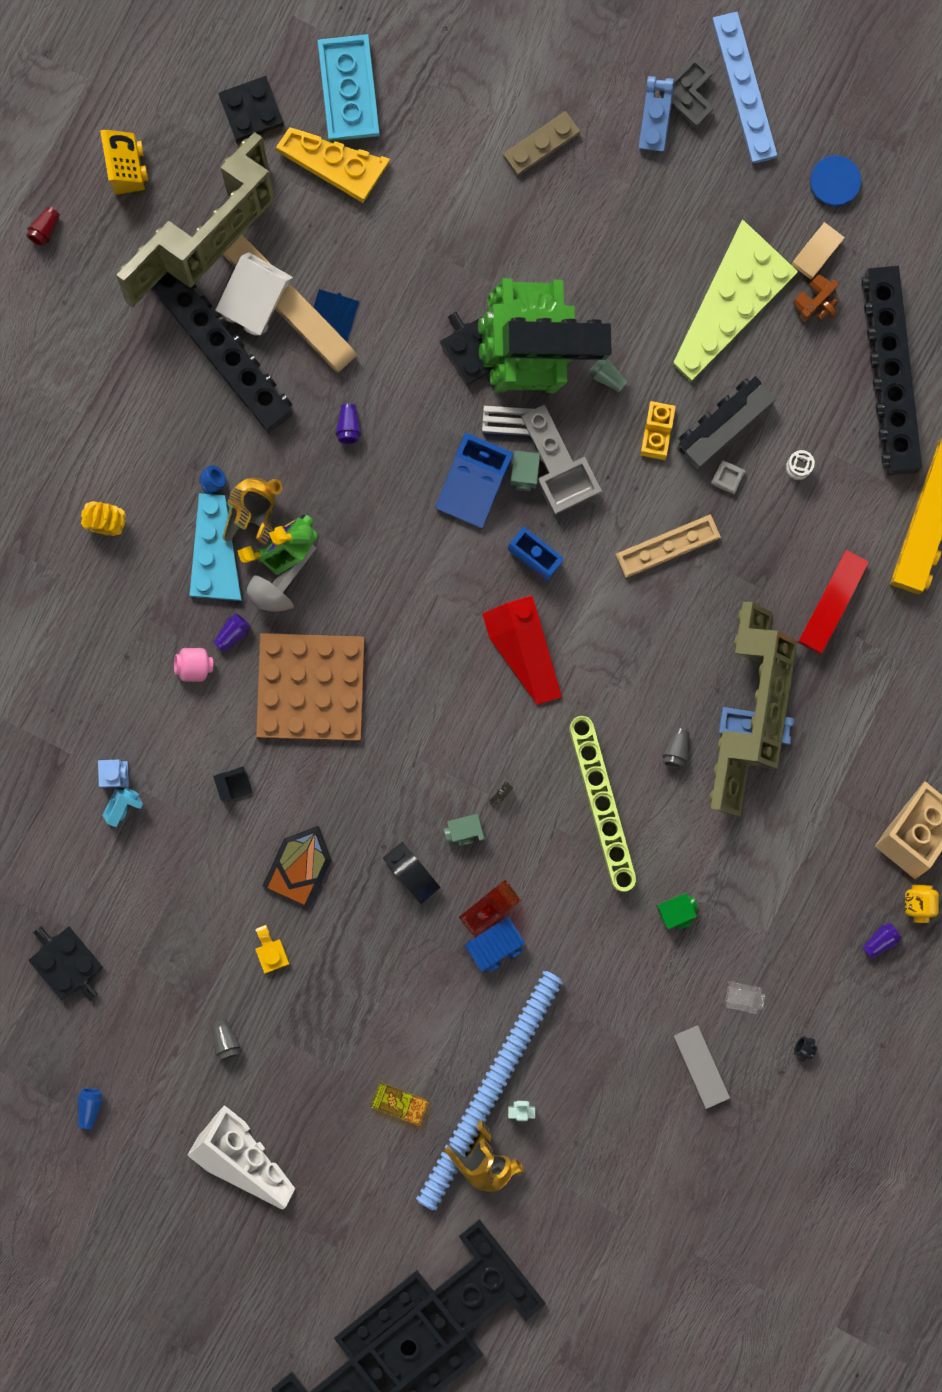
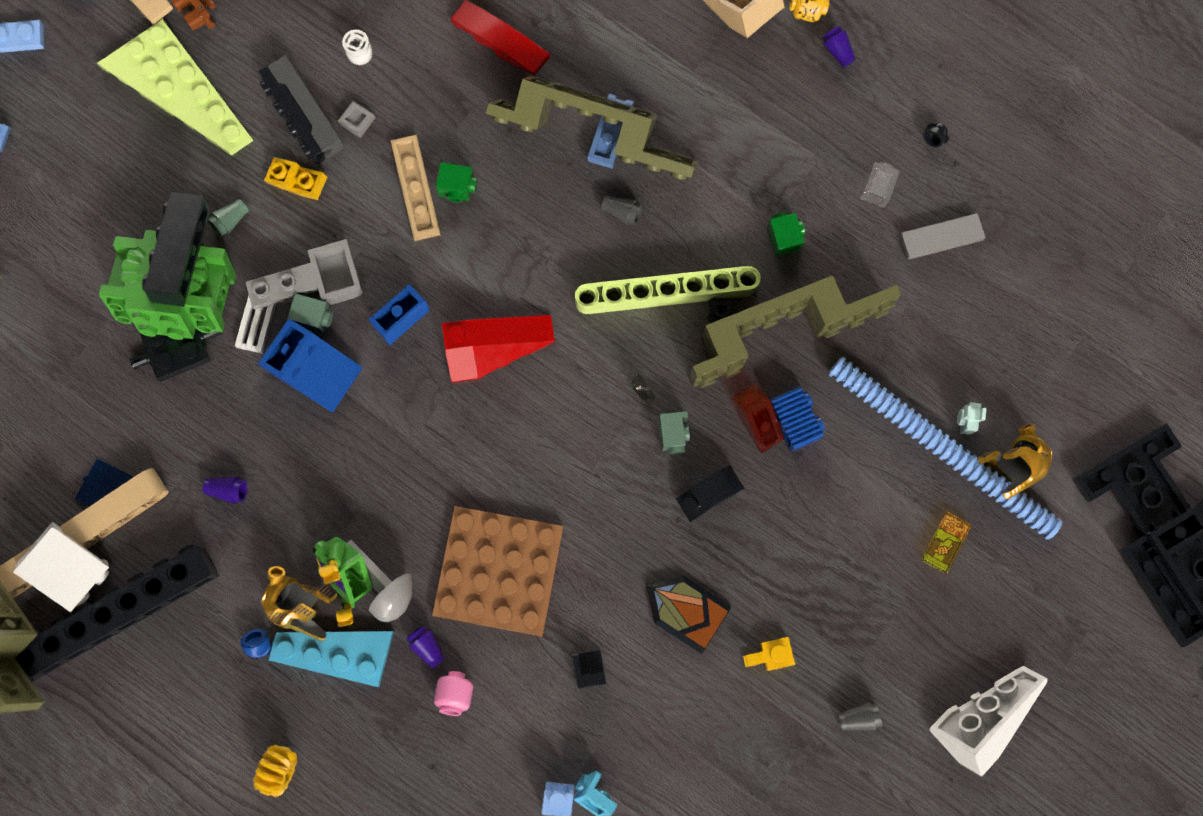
camera: 80 degrees left, 5 degrees down
(595, 853) = (715, 305): none -> black plate
(602, 957) = (821, 304): none -> olive bracket
(676, 584) = (456, 182): none -> green brick

